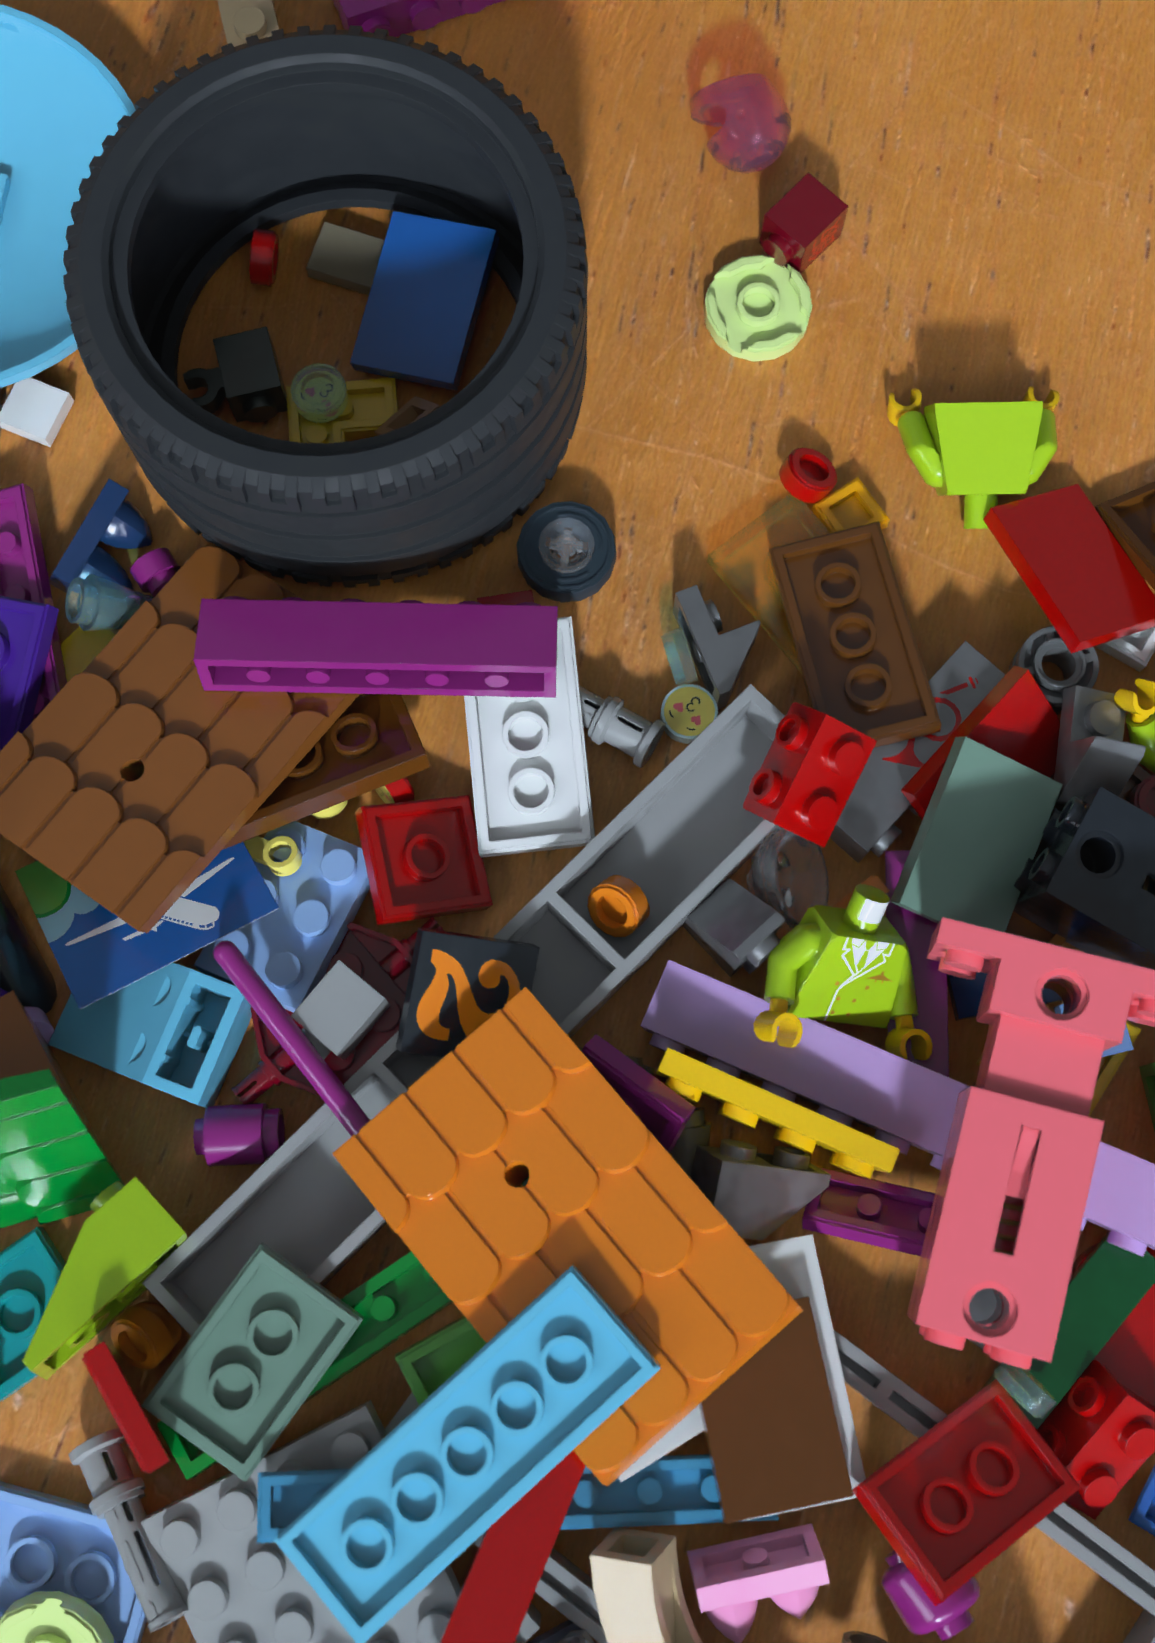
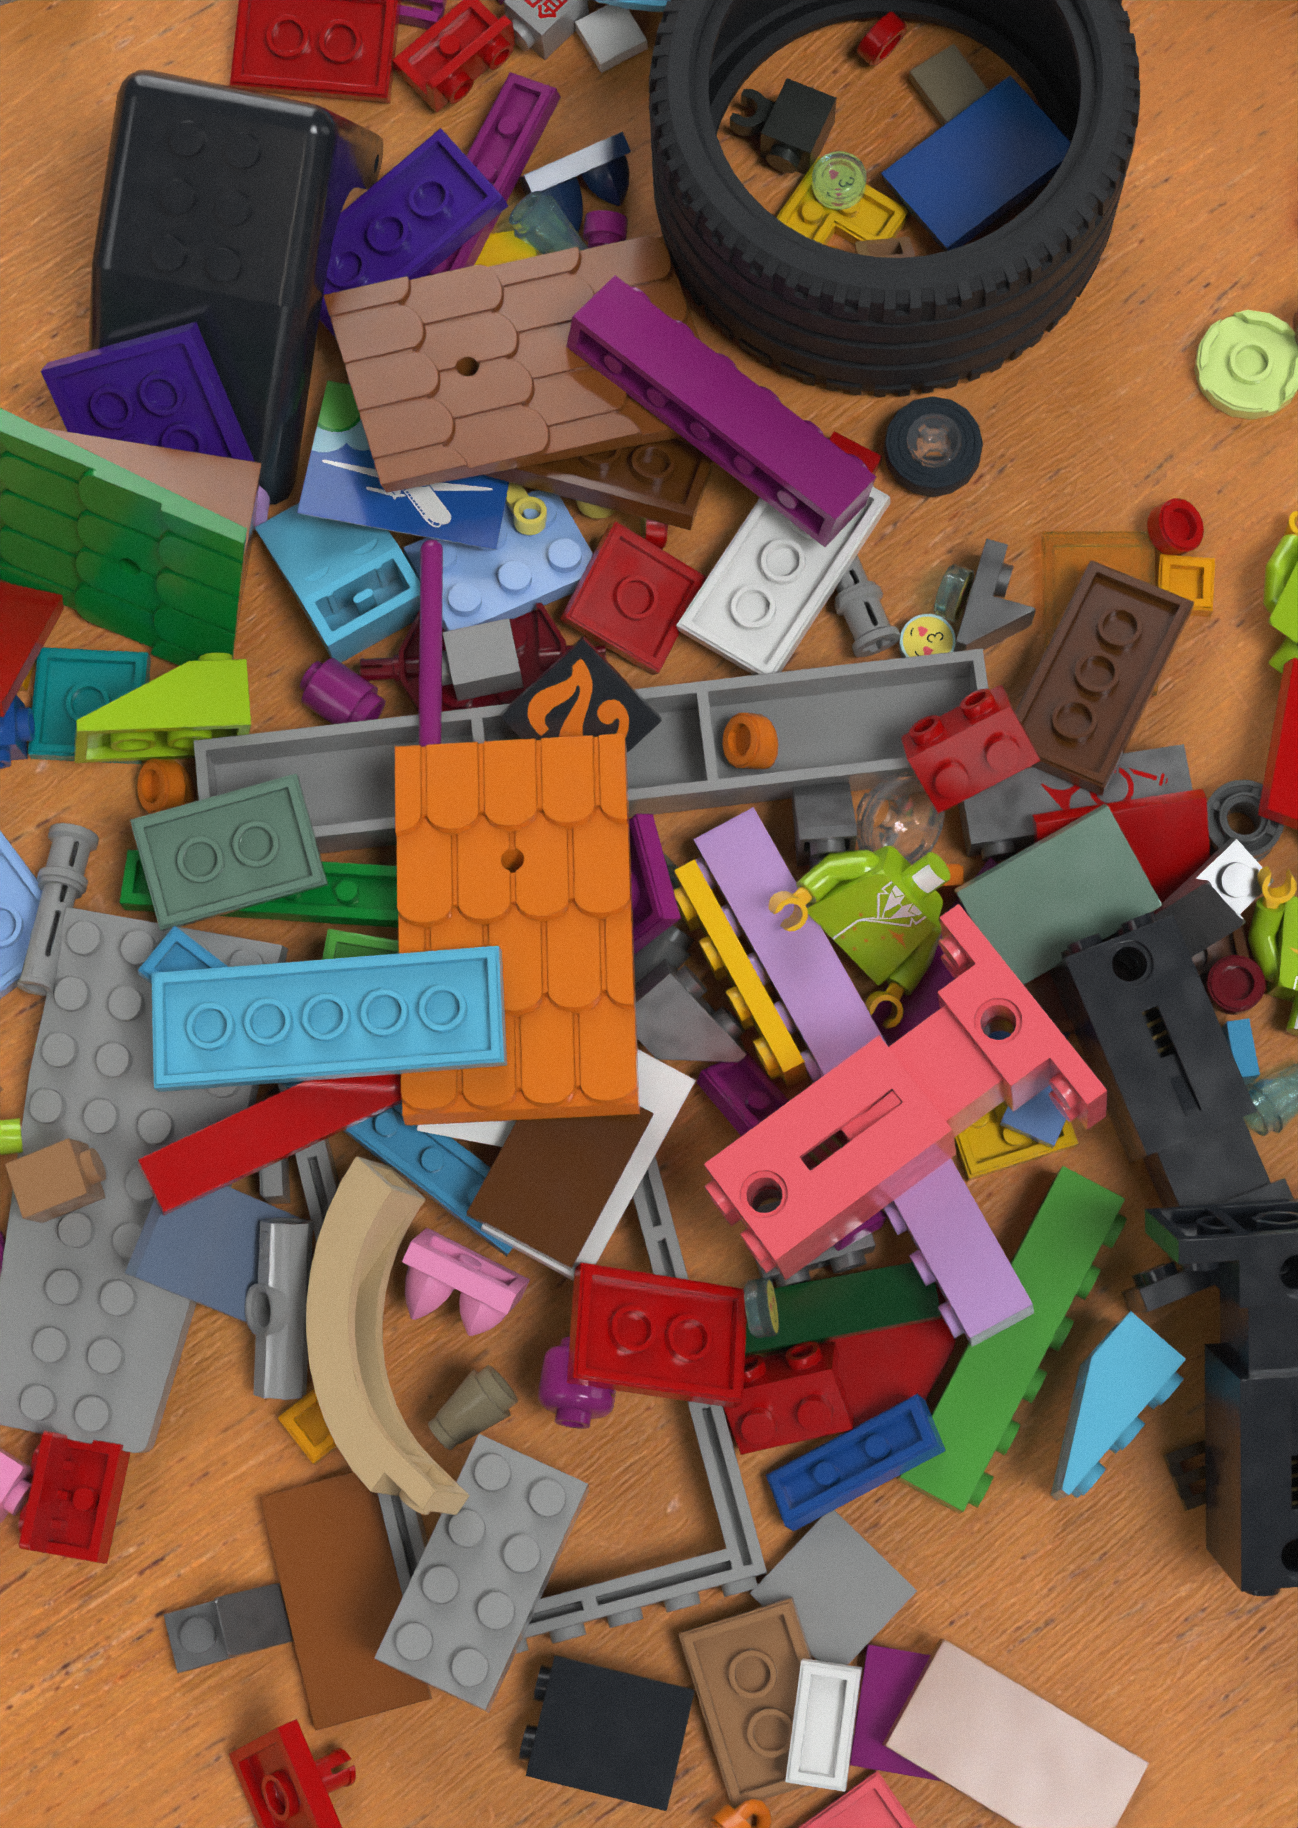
camera: 45 degrees right, 0 degrees up
(125, 1408) = (117, 817): red tile -> none

